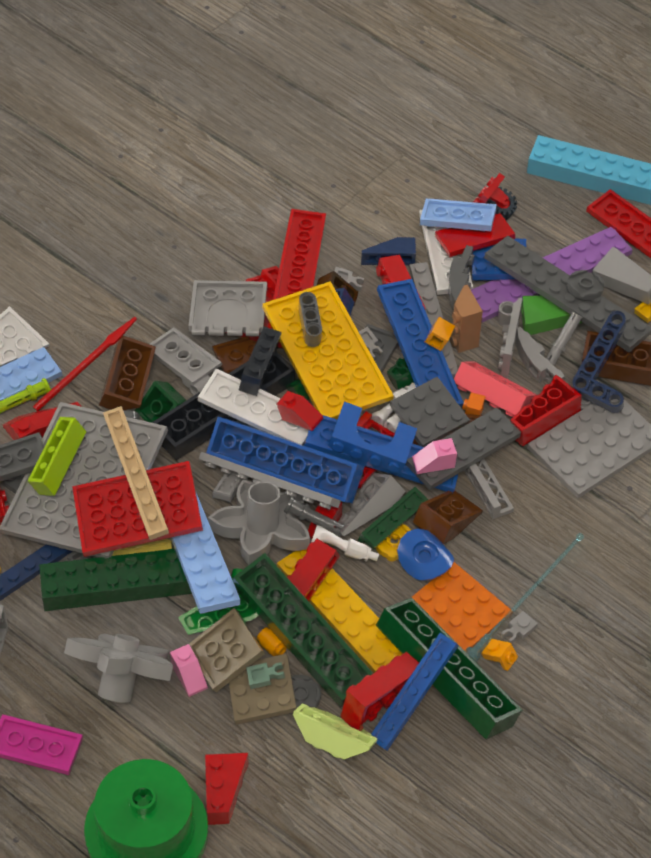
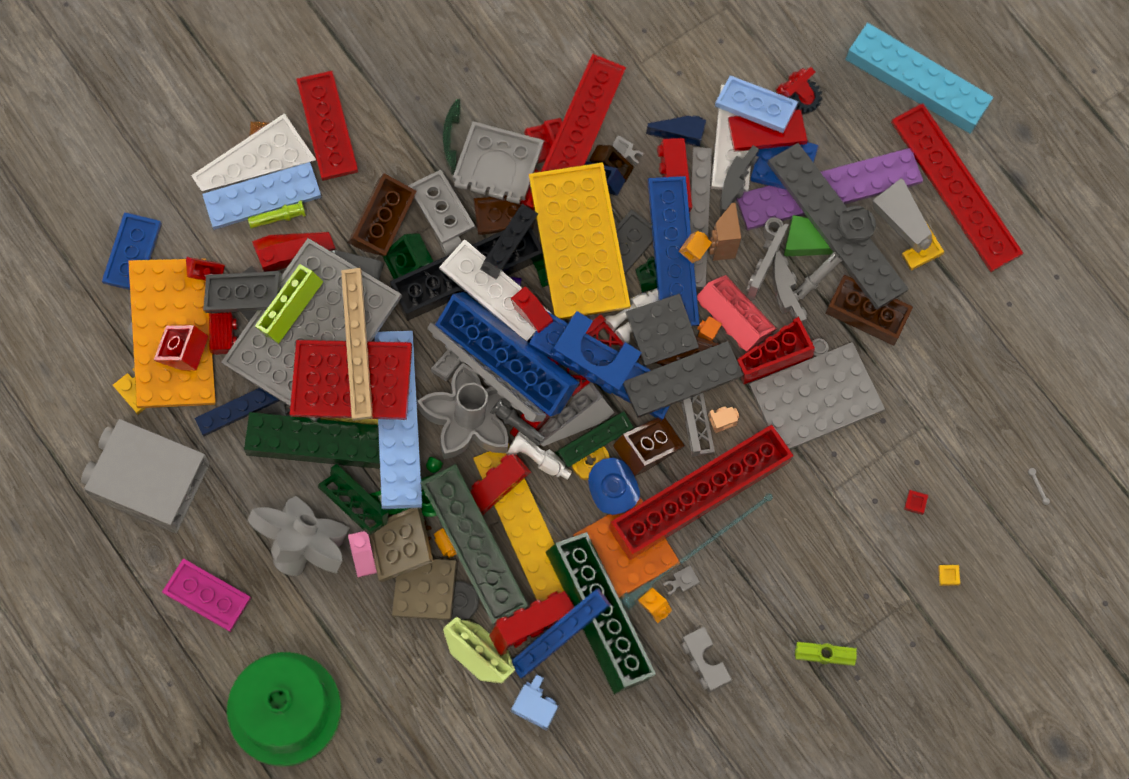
camera: 10 degrees right, 20 degrees up
(52, 314) = (327, 125): none -> red plate
(110, 340) = (373, 177): red piece -> none
(170, 618) = (358, 497): none -> dark green fence
(178, 313) = (452, 117): none -> clear green slope
(223, 784) = (363, 680): red wedge -> none
(261, 675) = (424, 580): sand green plate -> none
(310, 319) = (569, 197): dark grey beam -> none
(370, 341) = (624, 233): light grey plate -> none
(407, 773) = (534, 708): none -> light blue hinge
(435, 457) = (649, 390): bright pink slope -> none
(511, 540) = (700, 492): none -> red brick
(513, 477) = (723, 418): none -> light nougat brick
(578, 703) = (711, 676): none -> light grey arch
(598, 363) = (841, 318): dark blue beam -> none

